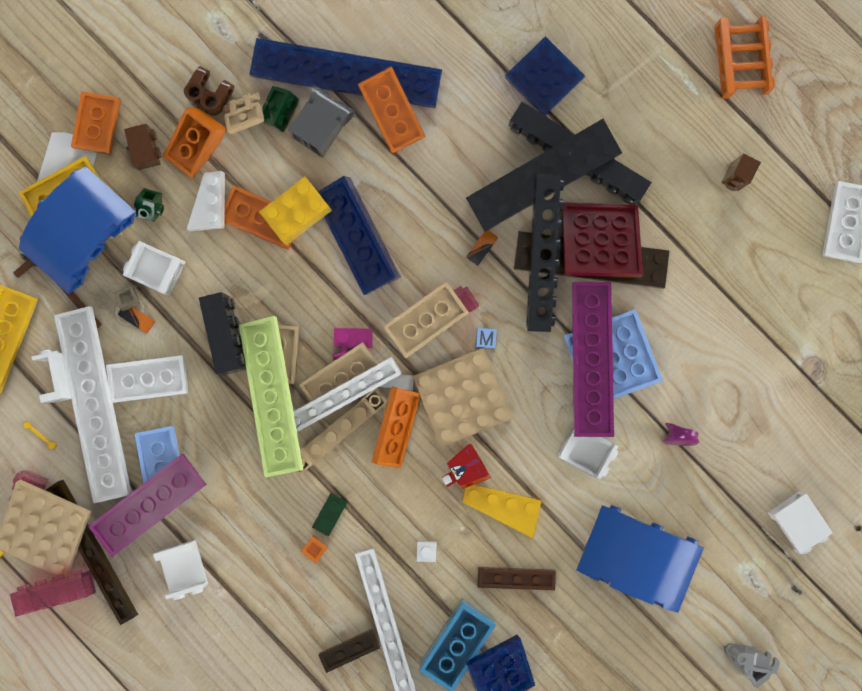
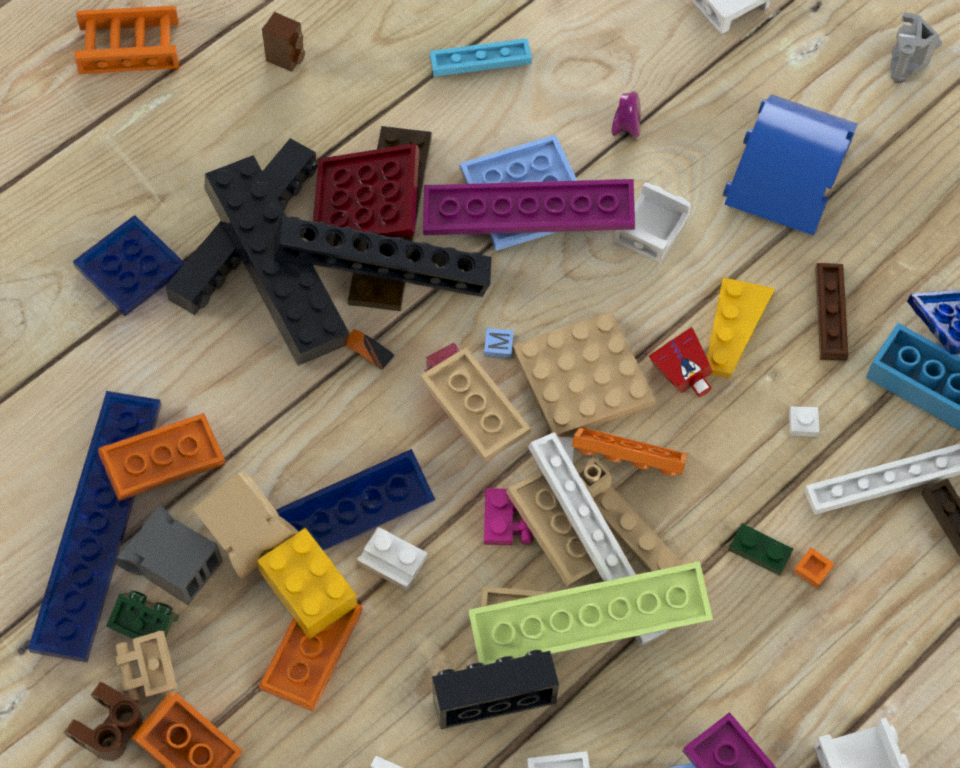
camera: 90 degrees left, 25 degrees down
(209, 204) = (288, 720): white wing -> none
(322, 267) = (392, 558): none -> white plate
(335, 167) = (243, 522): none -> tan piece
(735, 324) = (480, 57): none -> medium azure plate

